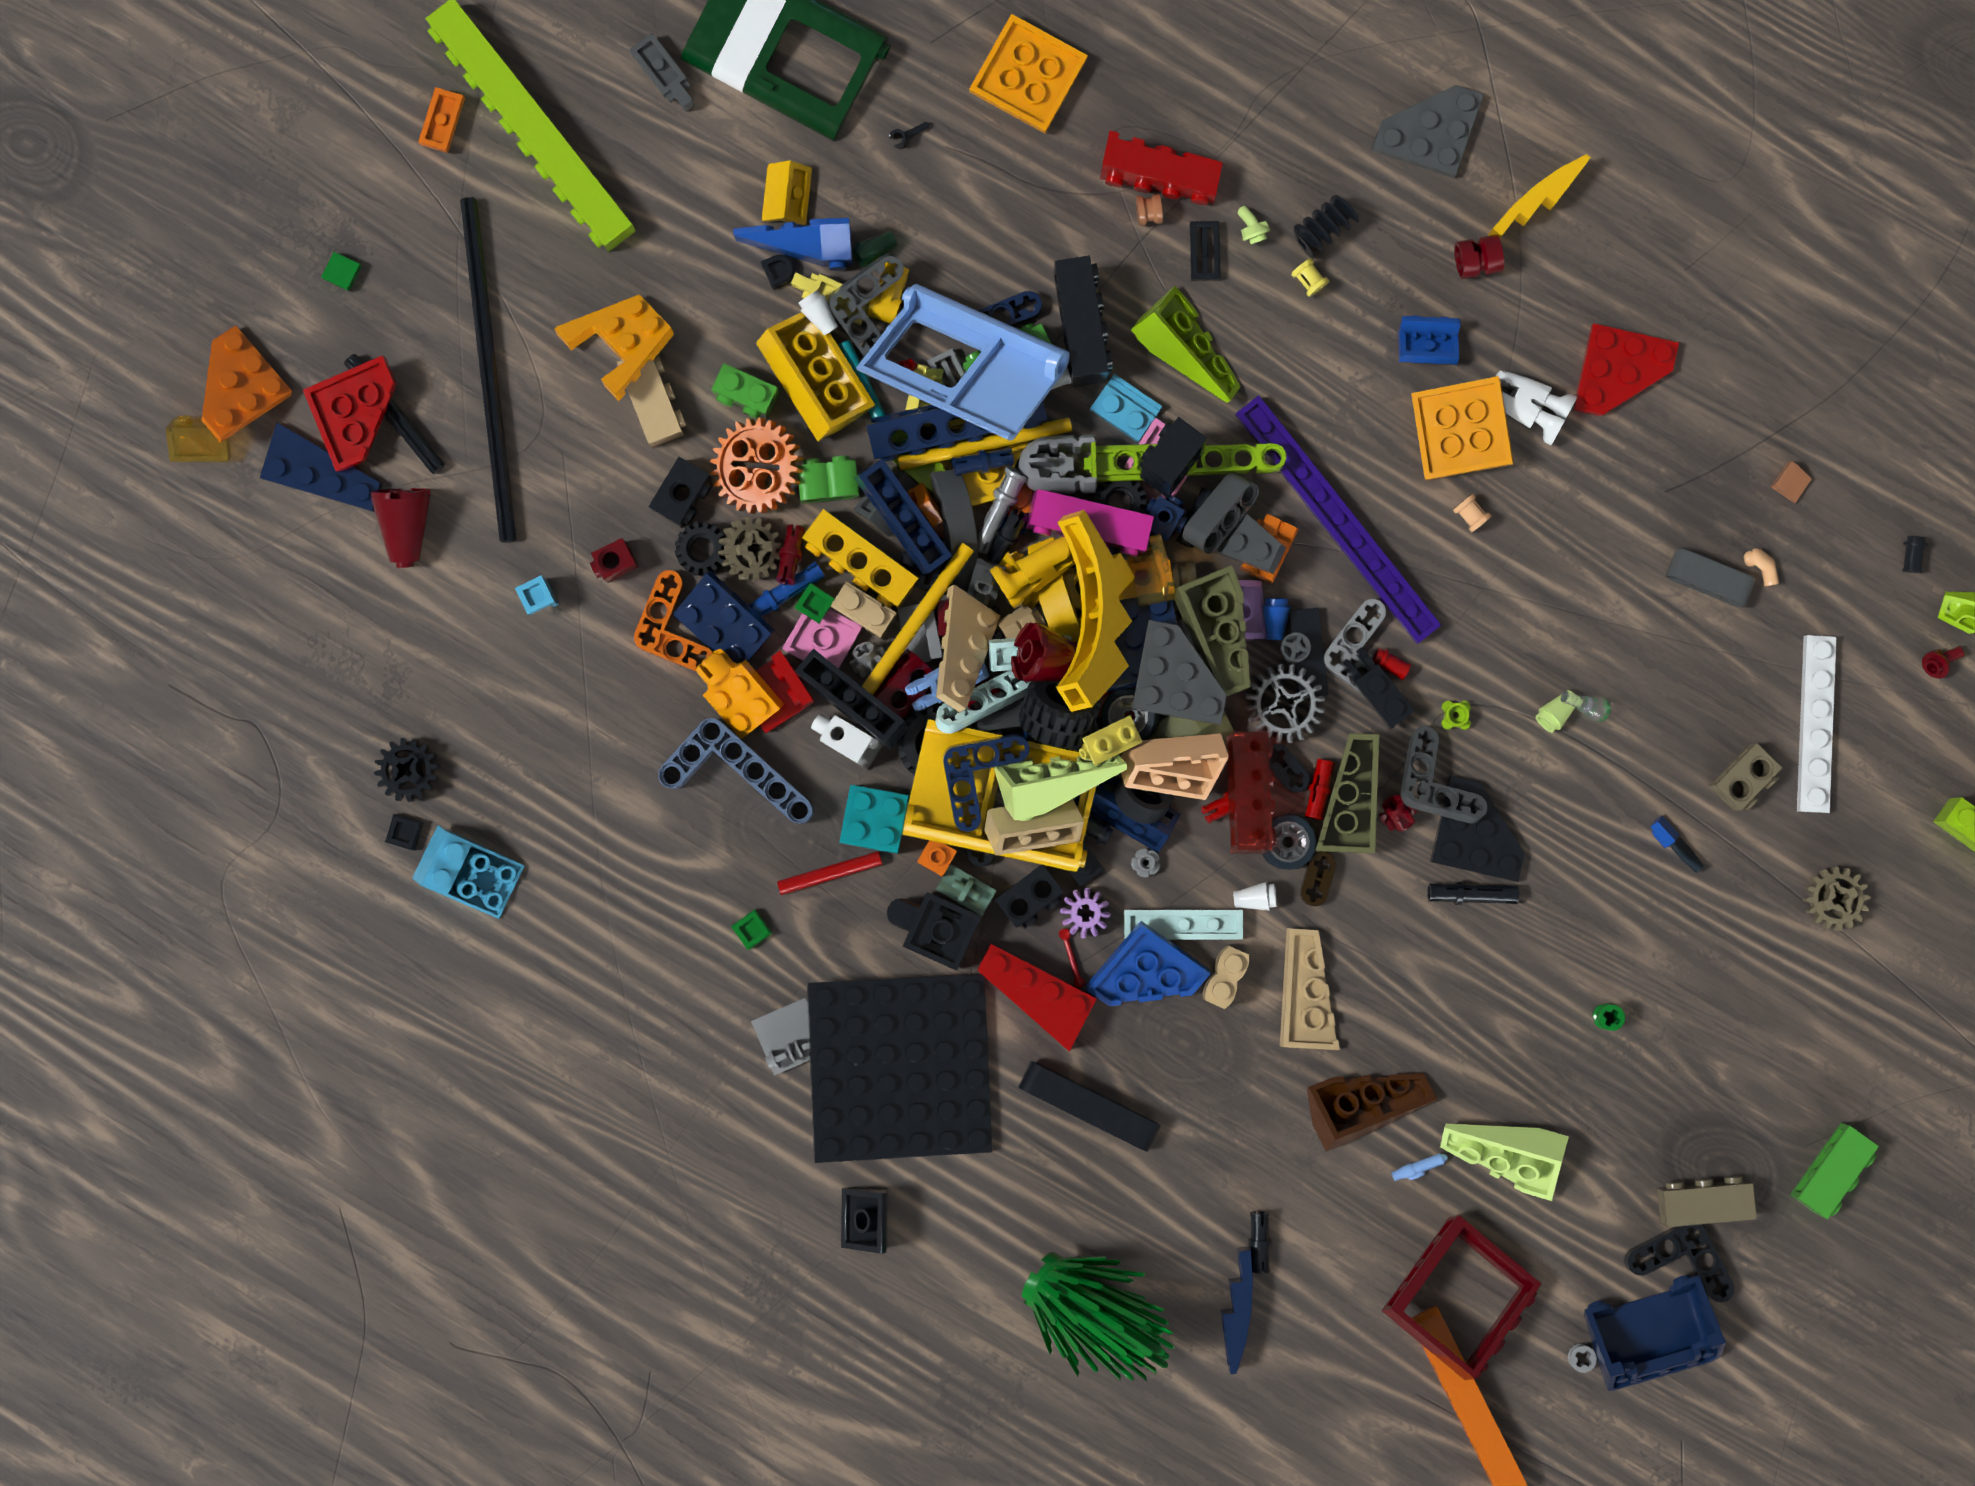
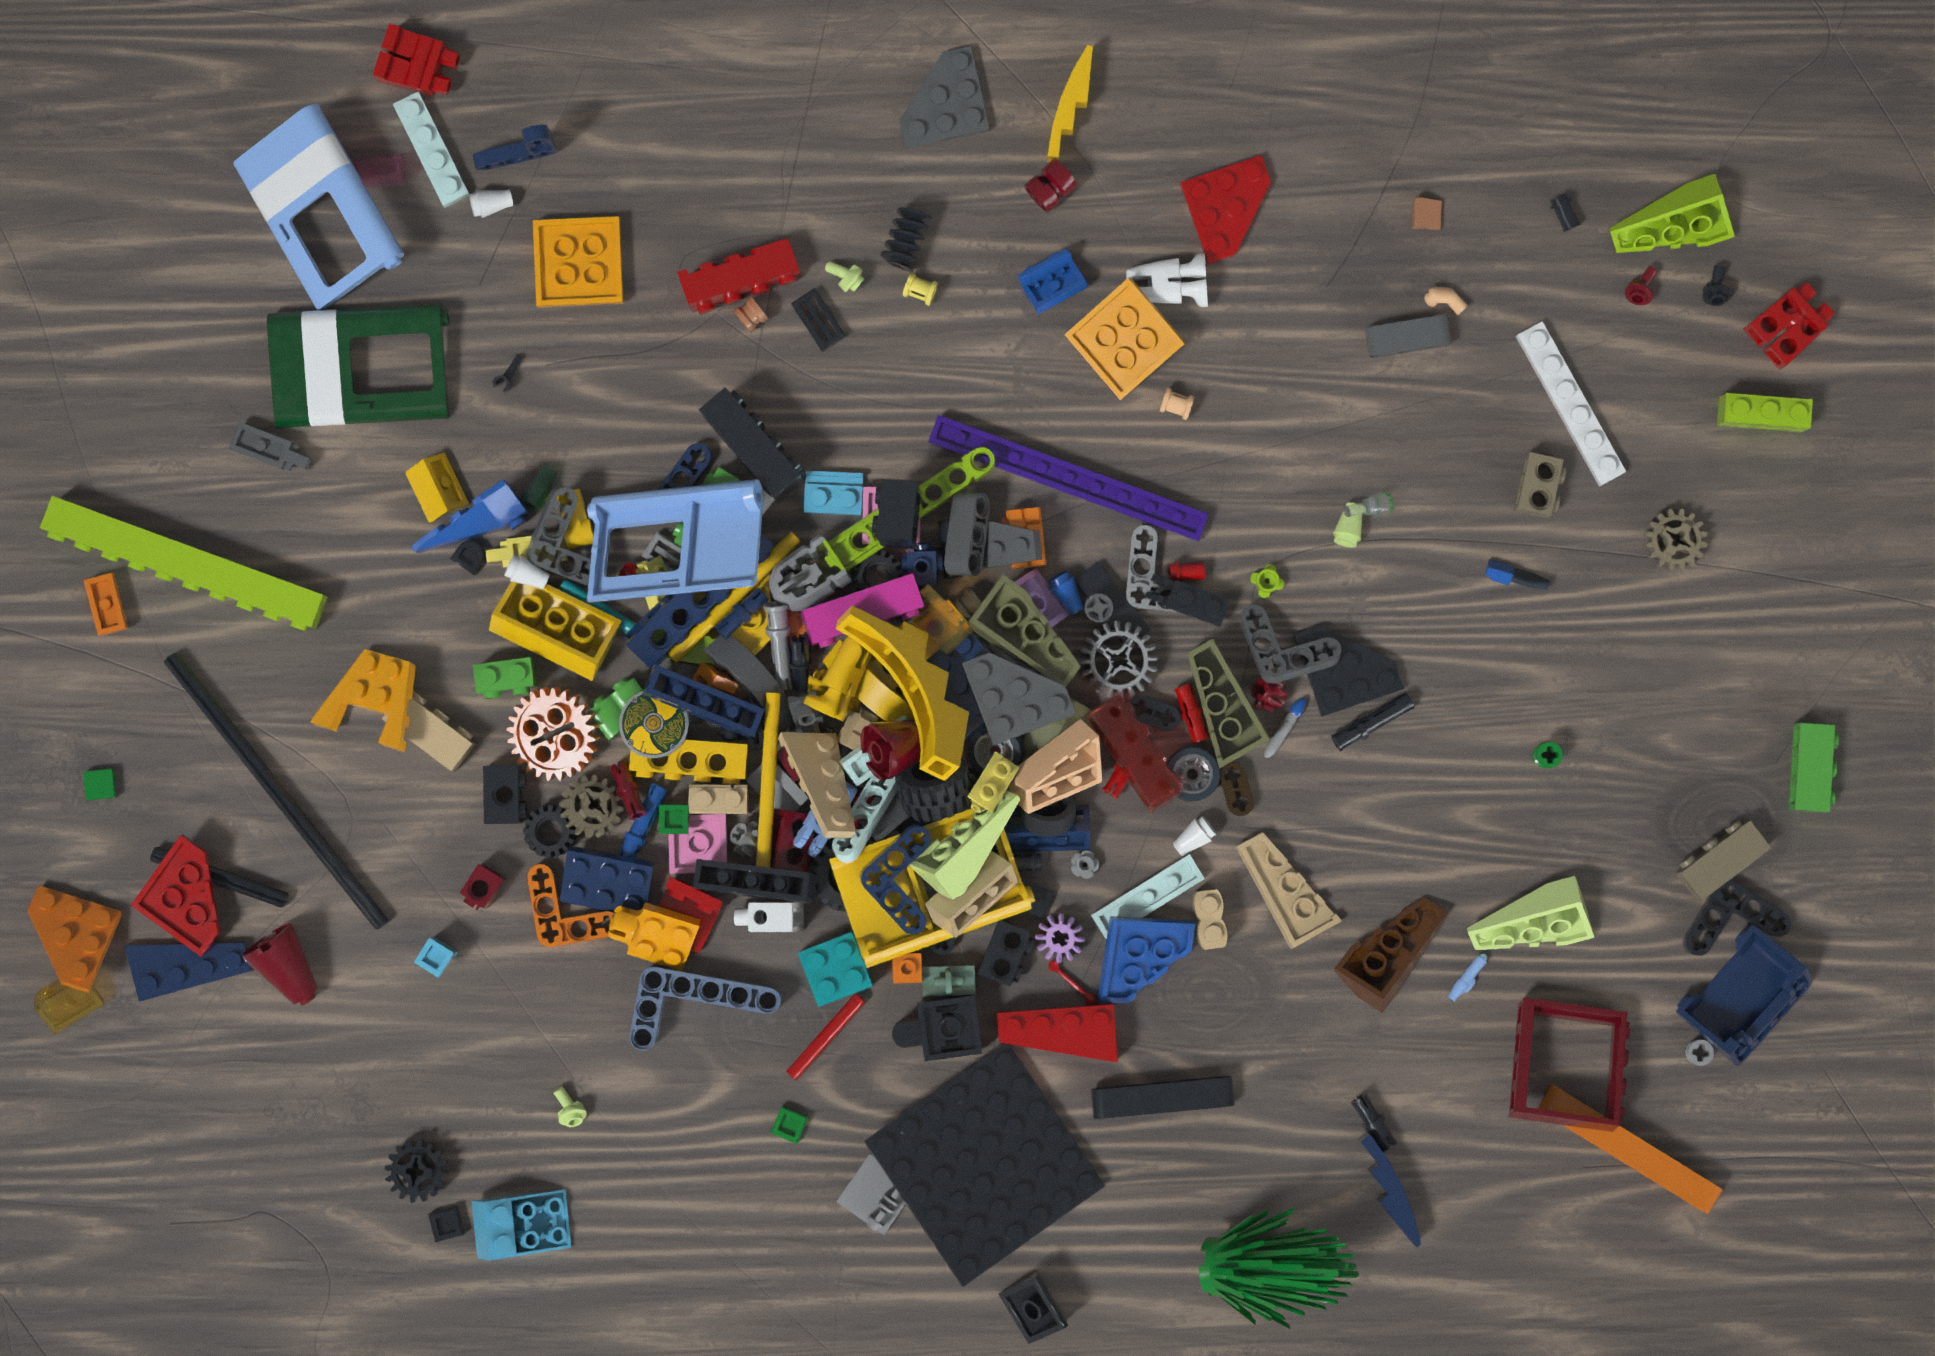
camera: 35 degrees left, 0 degrees up
(571, 803) = (572, 1112): none -> yellowish green plate
(845, 512) = (652, 726): none -> shield
(1176, 338) = (838, 408): lime wedge -> none
(1394, 851) = (1295, 711): none -> light grey piece

